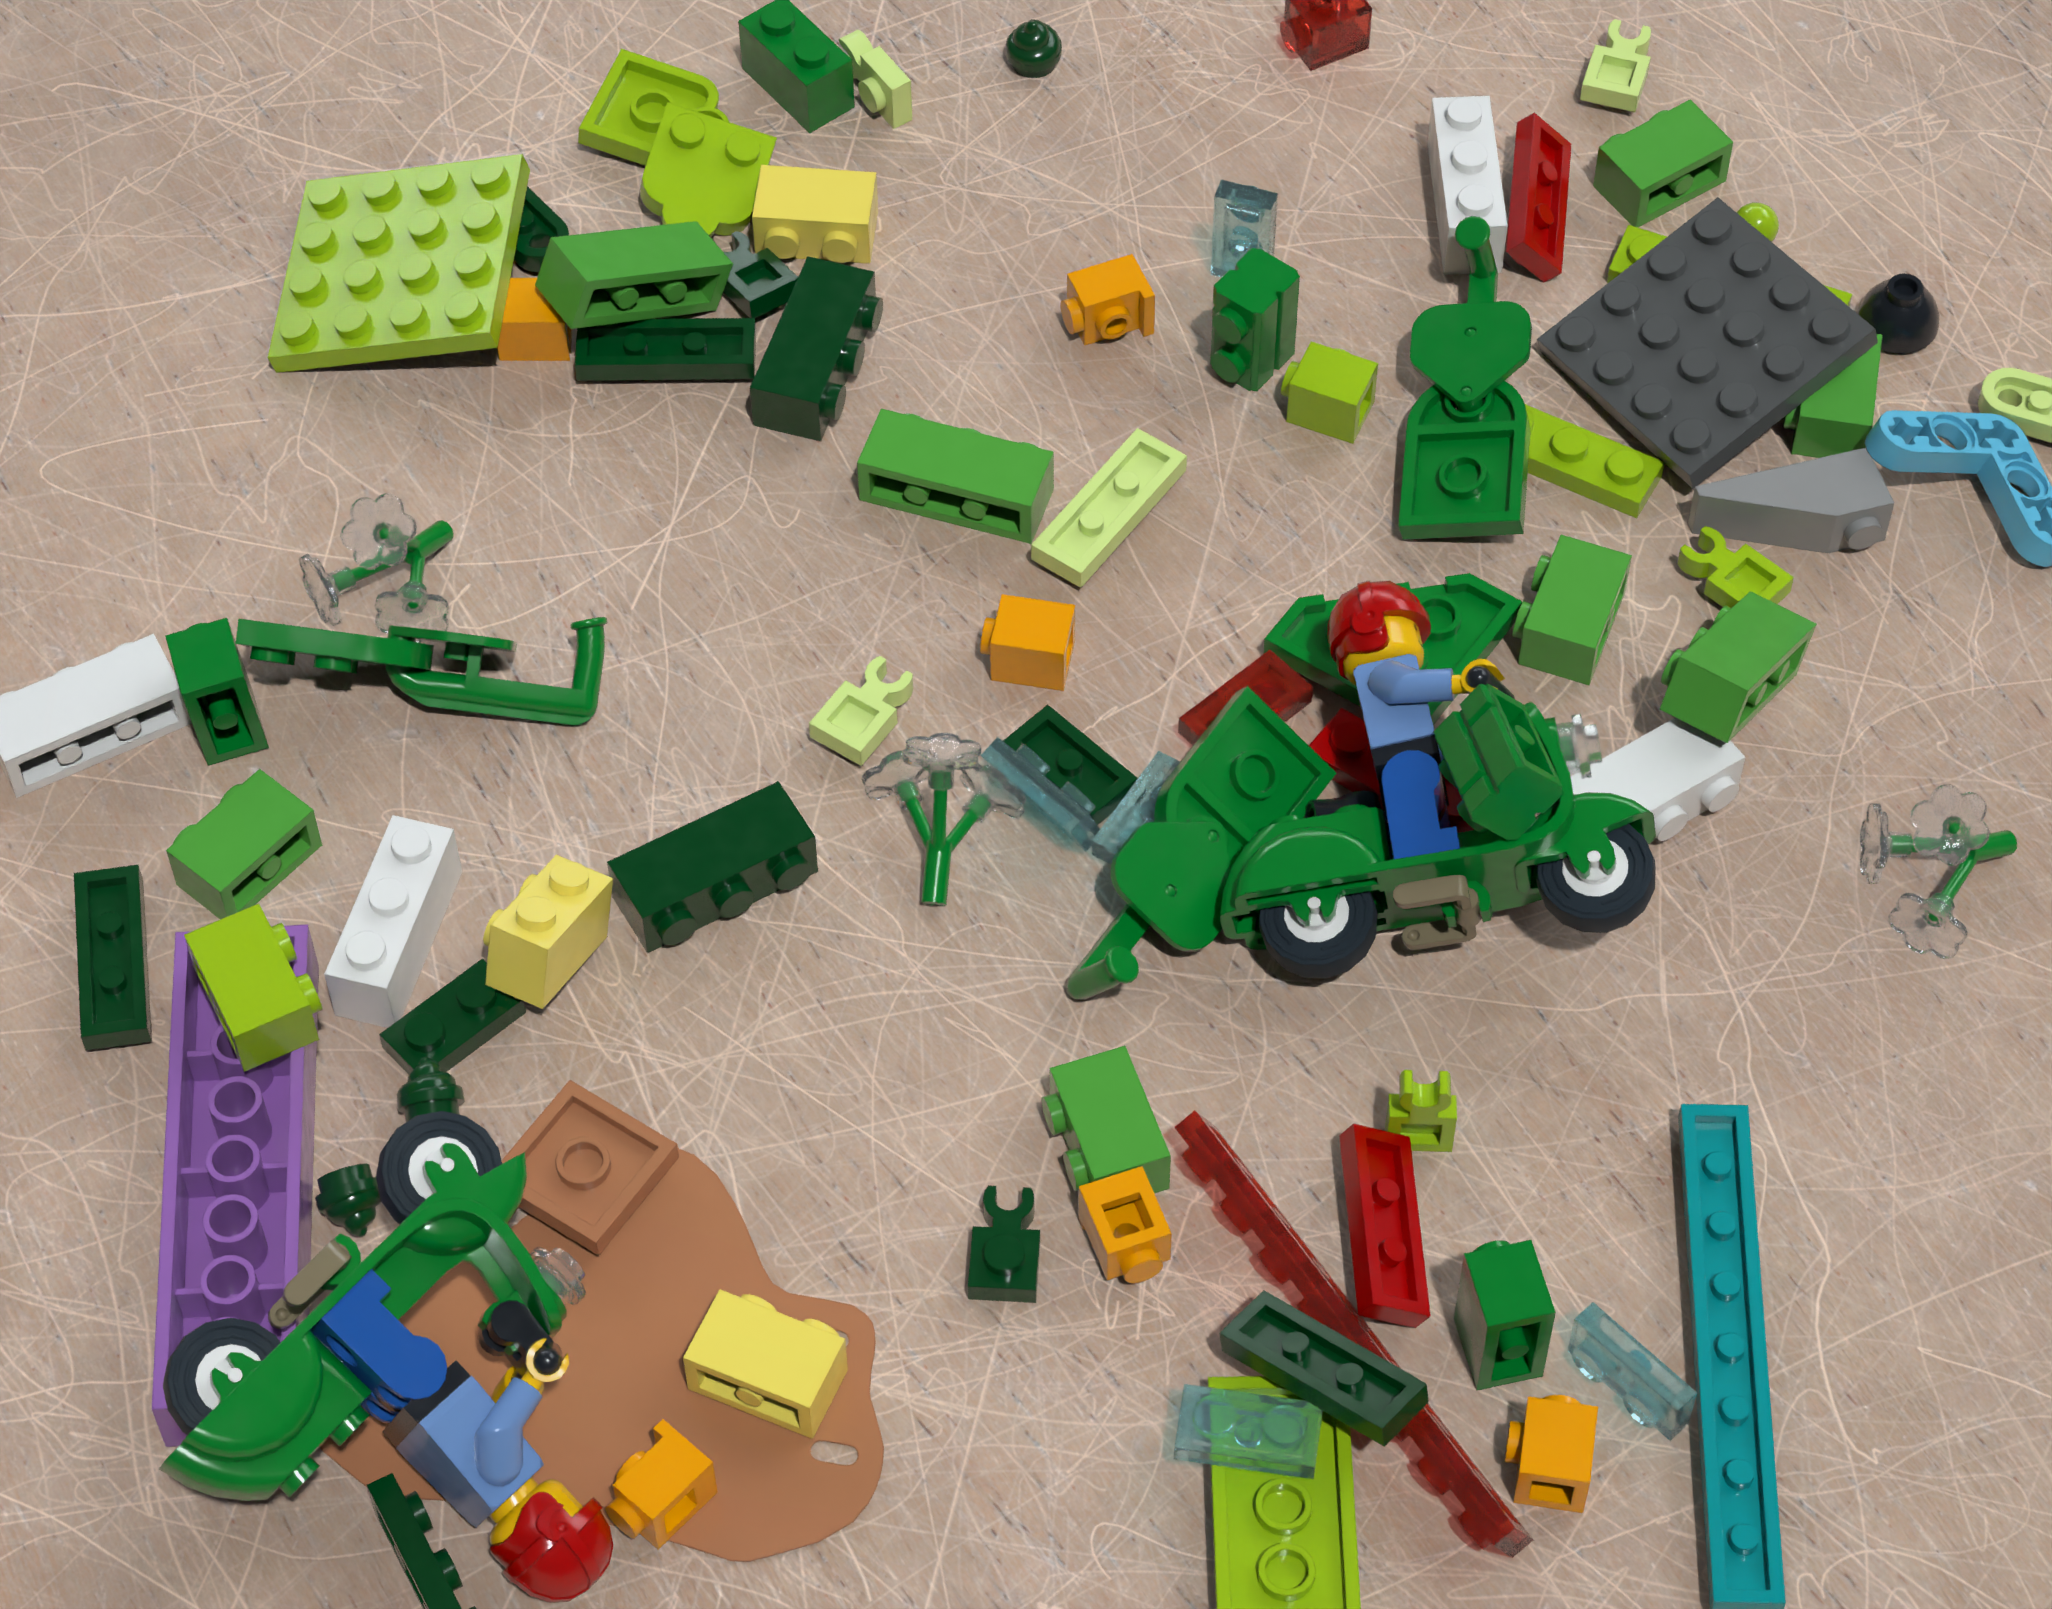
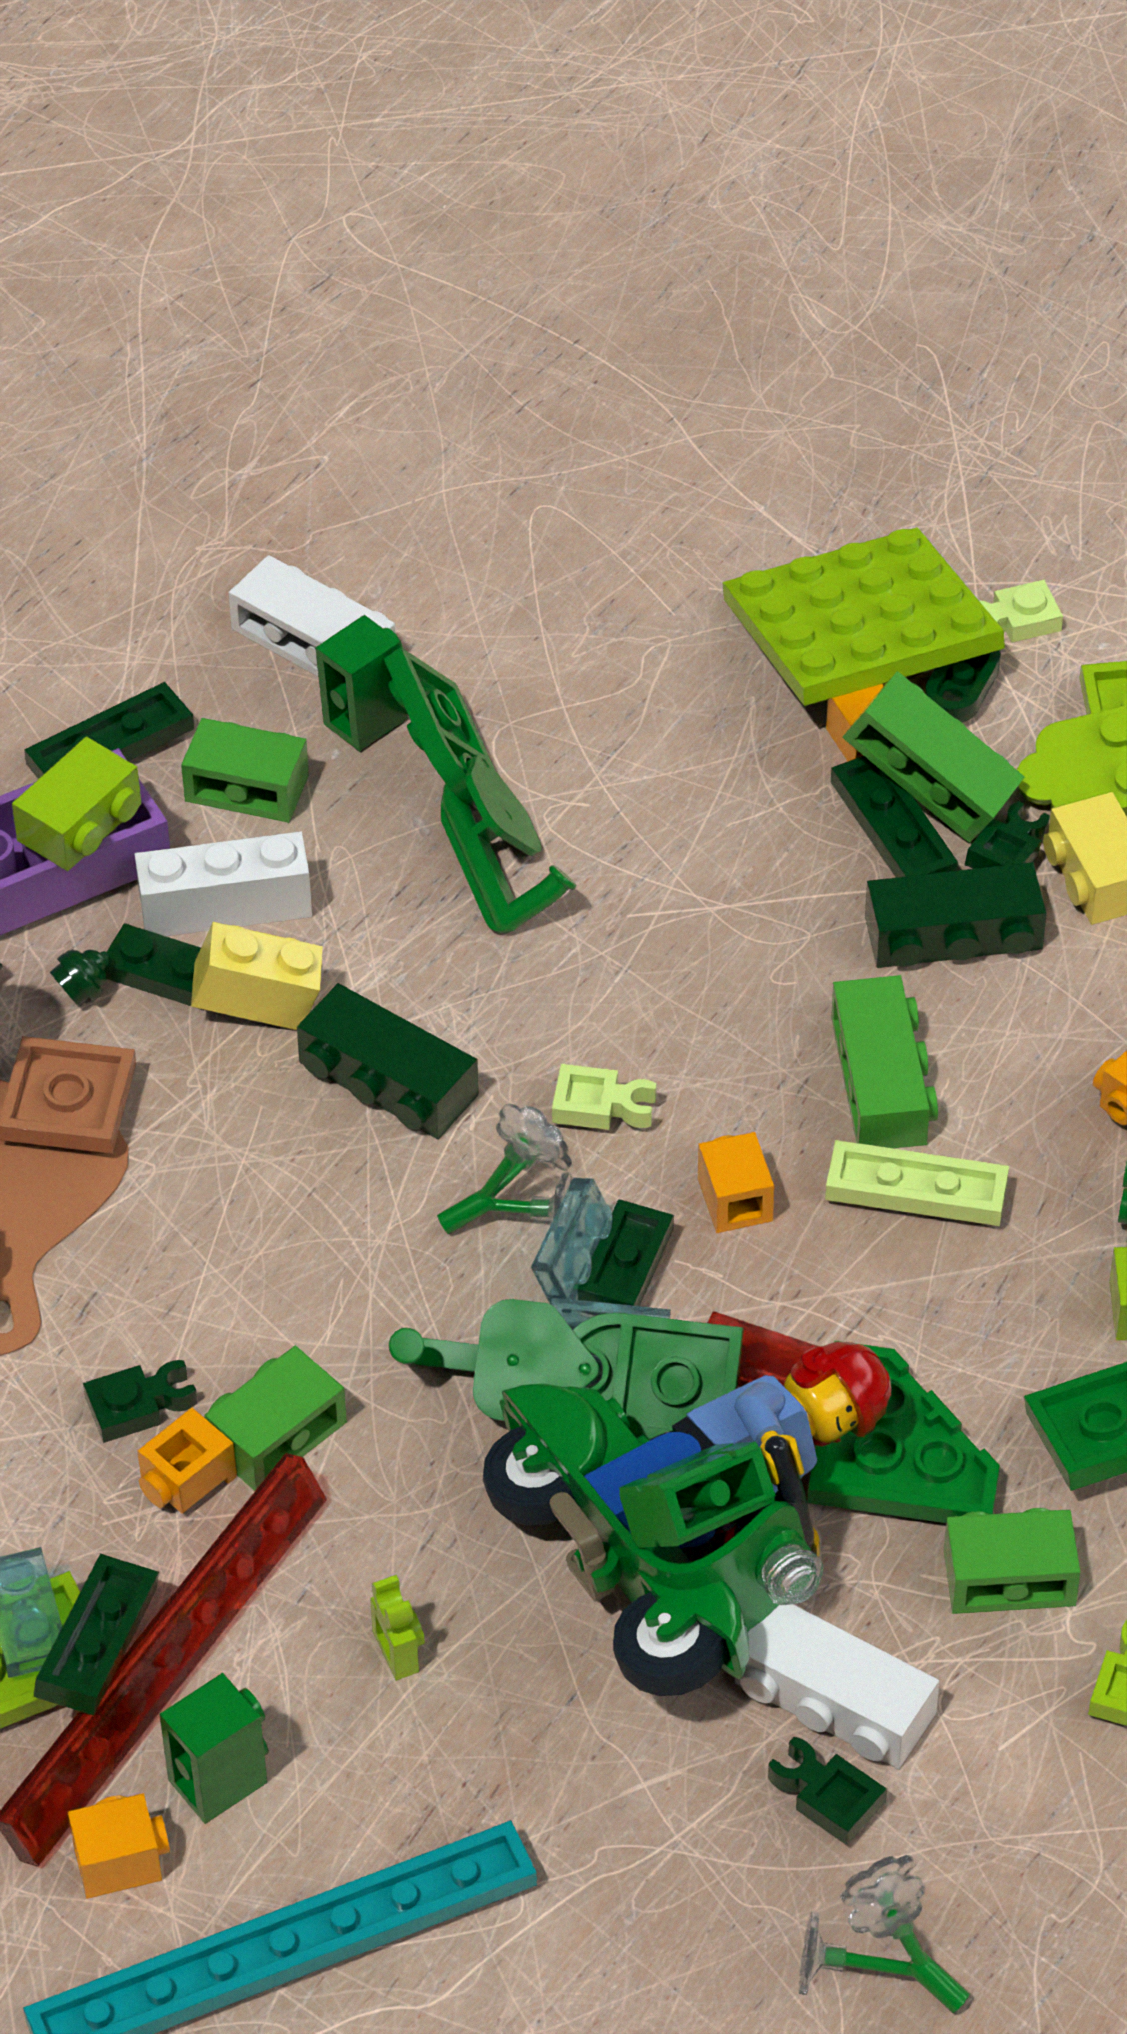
camera: 65 degrees right, 5 degrees down
(382, 539) = (528, 705): clear plant -> none
(465, 140) = (1026, 611): none -> yellowish green plate
(1384, 1226) = (285, 1640): red plate -> none
(1645, 1383) = (229, 1857): clear light blue plate -> none
(1735, 666) = (998, 1694): bright green brick -> none
(1756, 841) = (830, 1795): none -> dark green plate

